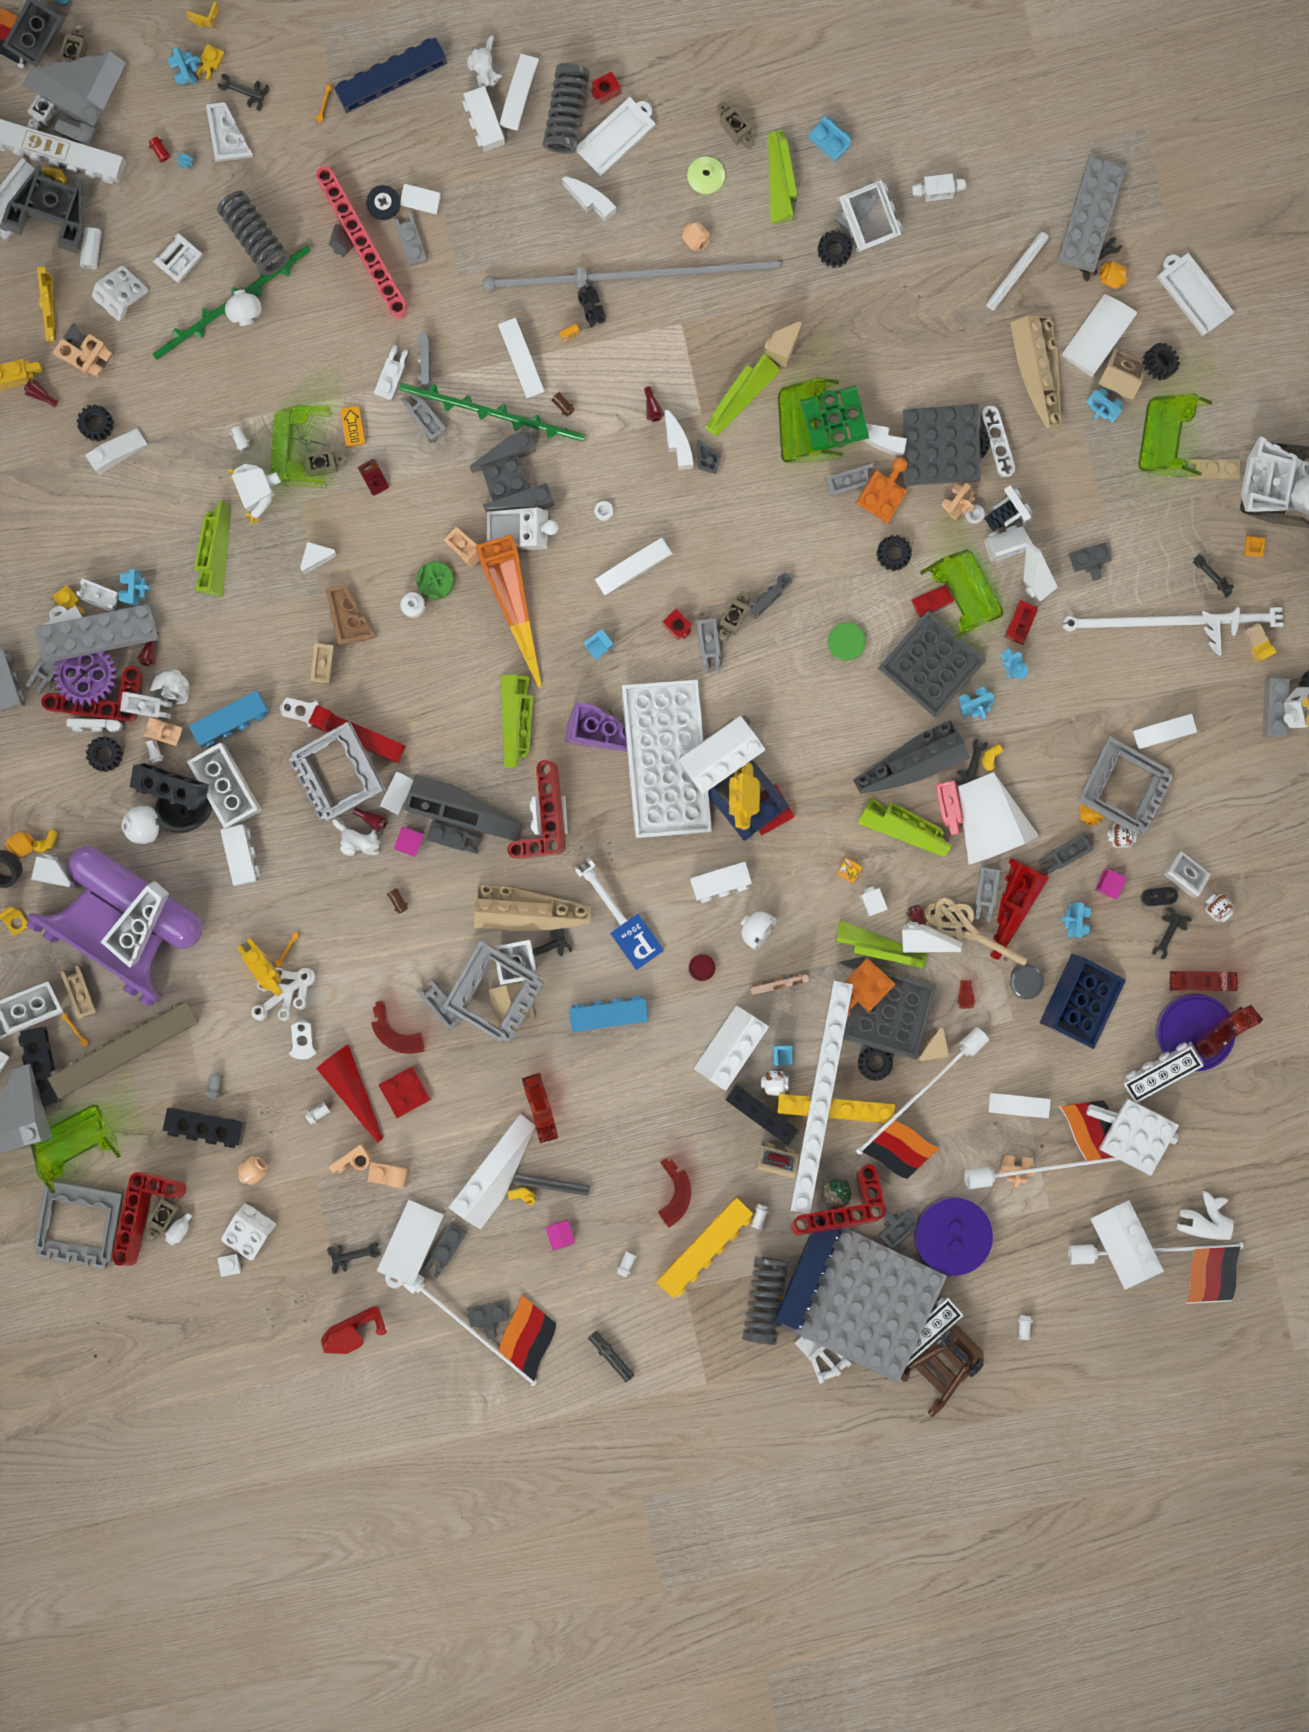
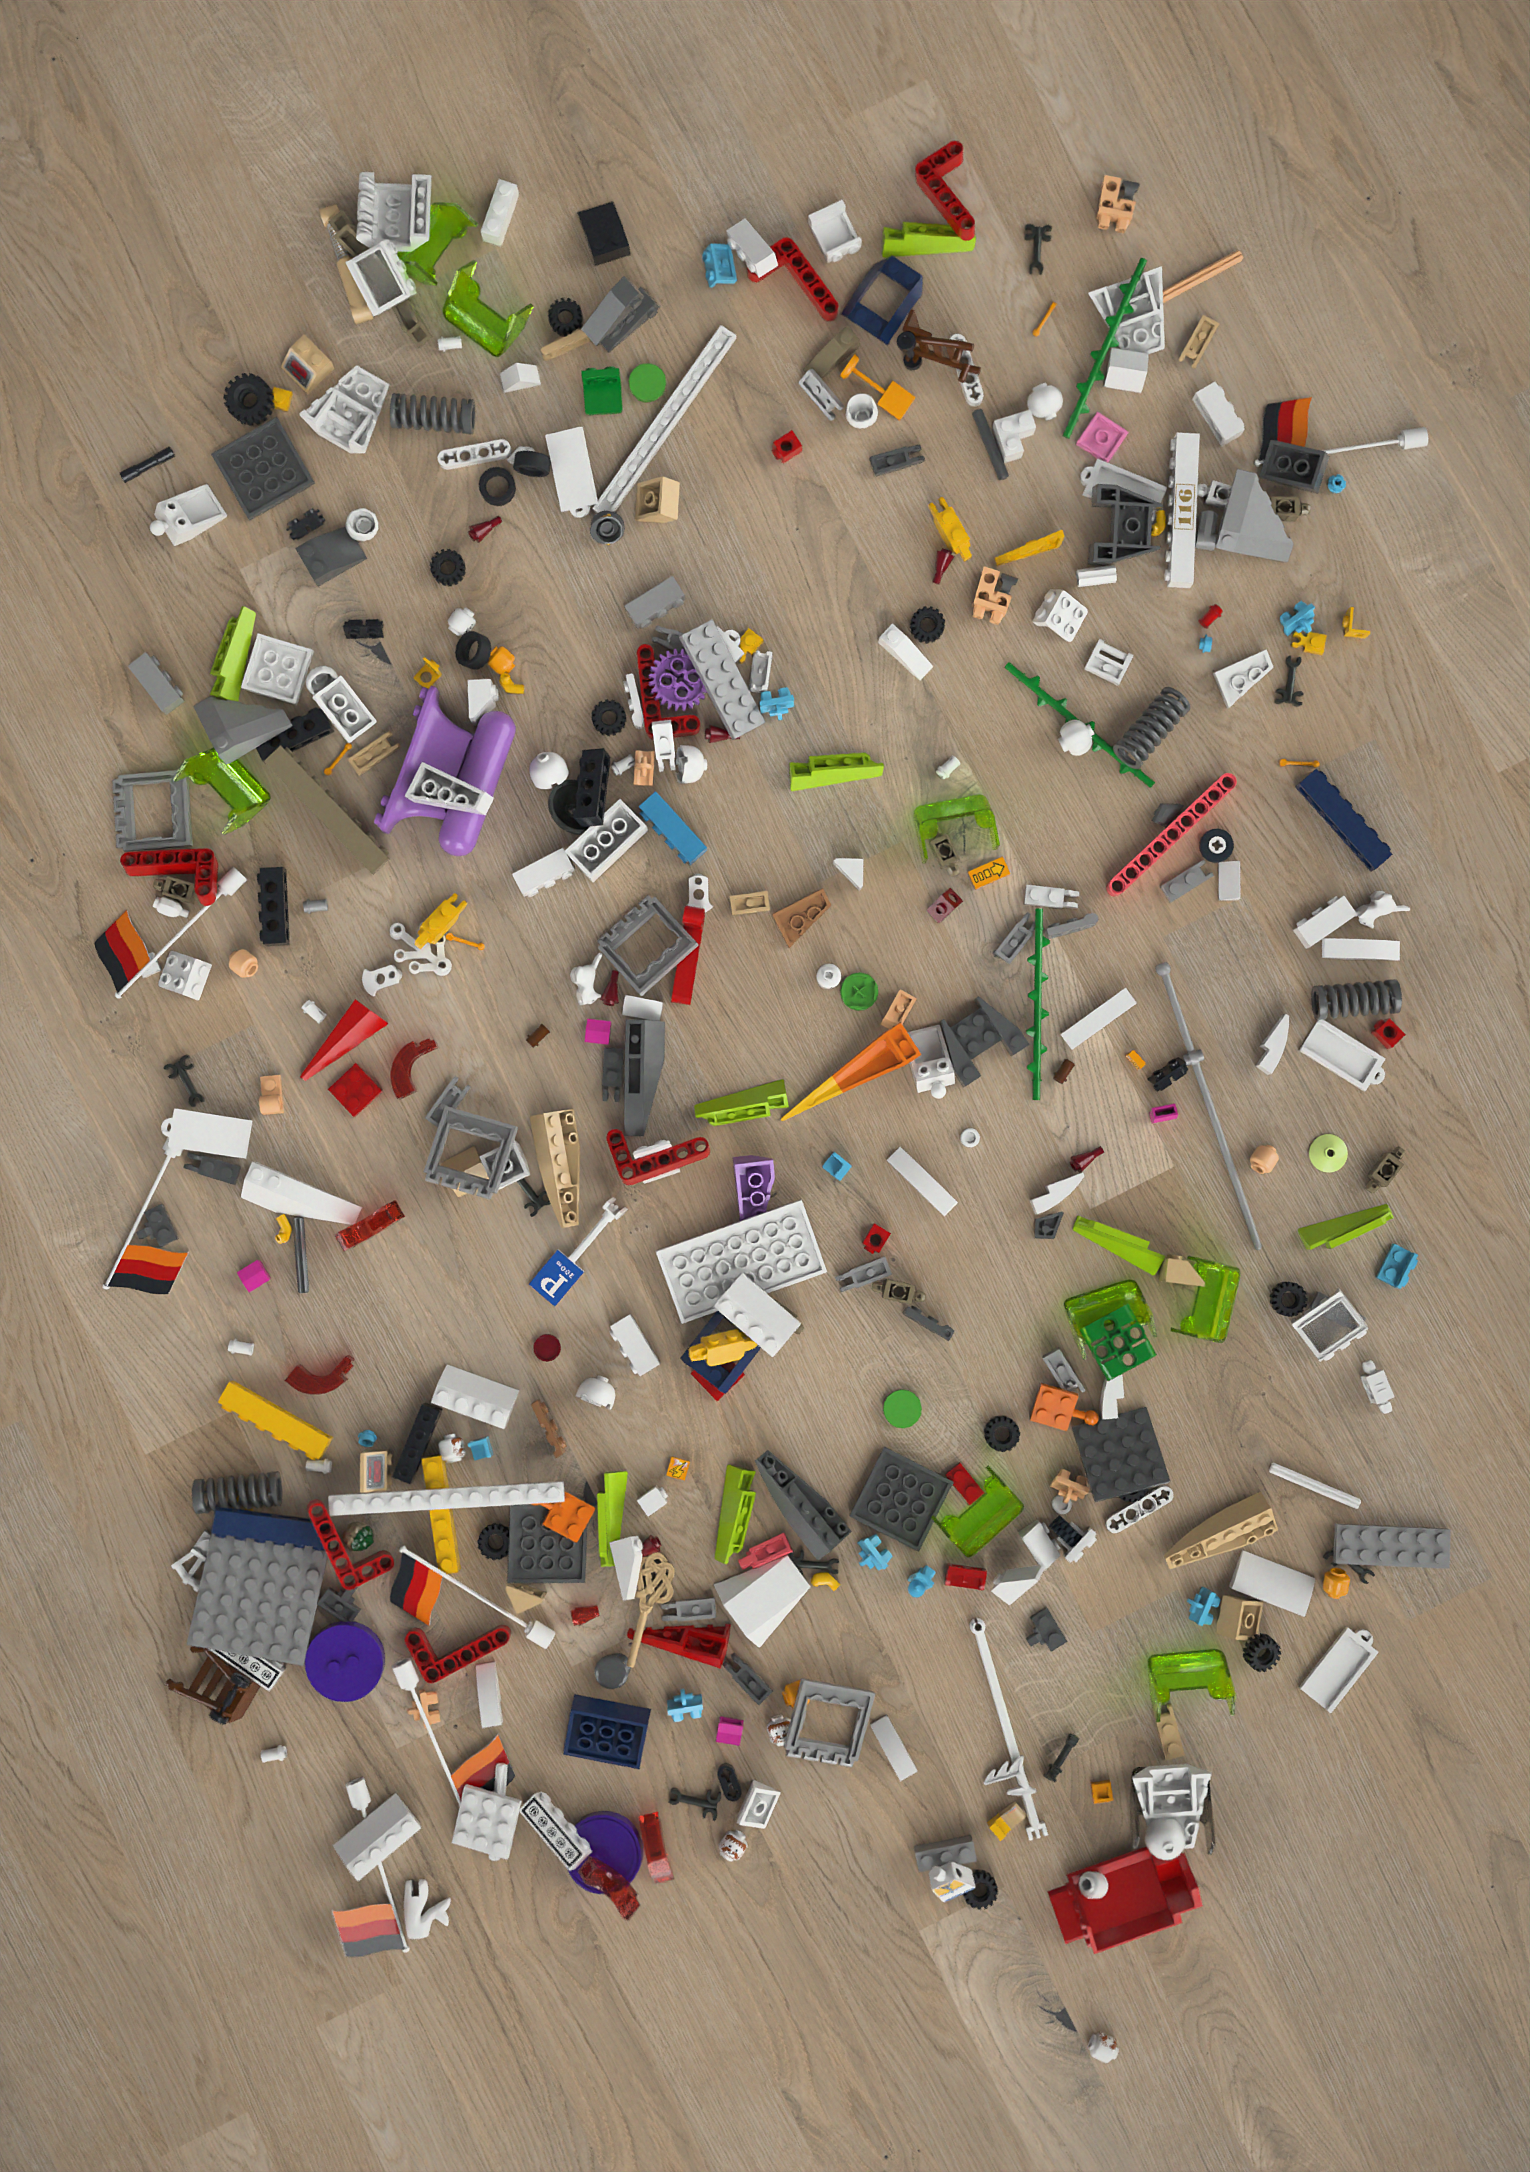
camera: 75 degrees right, 0 degrees up
(212, 1283) = (124, 950): none -> flag
(254, 488) = (902, 794): white torso -> none
(345, 1338) = (105, 1091): red piece -> none
(351, 1157) = (278, 1054): light nougat plate -> none
(596, 1338) = (136, 1373): pearl dark grey pin -> none
(608, 1015) = (477, 1268): dark azure brick -> none
(632, 320) = (1155, 1119): none -> dark pink piece
(745, 1162) = (367, 1438): none -> medium azure plate
(818, 320) = (1213, 1301): none -> clear neon green windscreen
(974, 1127) = (455, 1655): none -> red beam

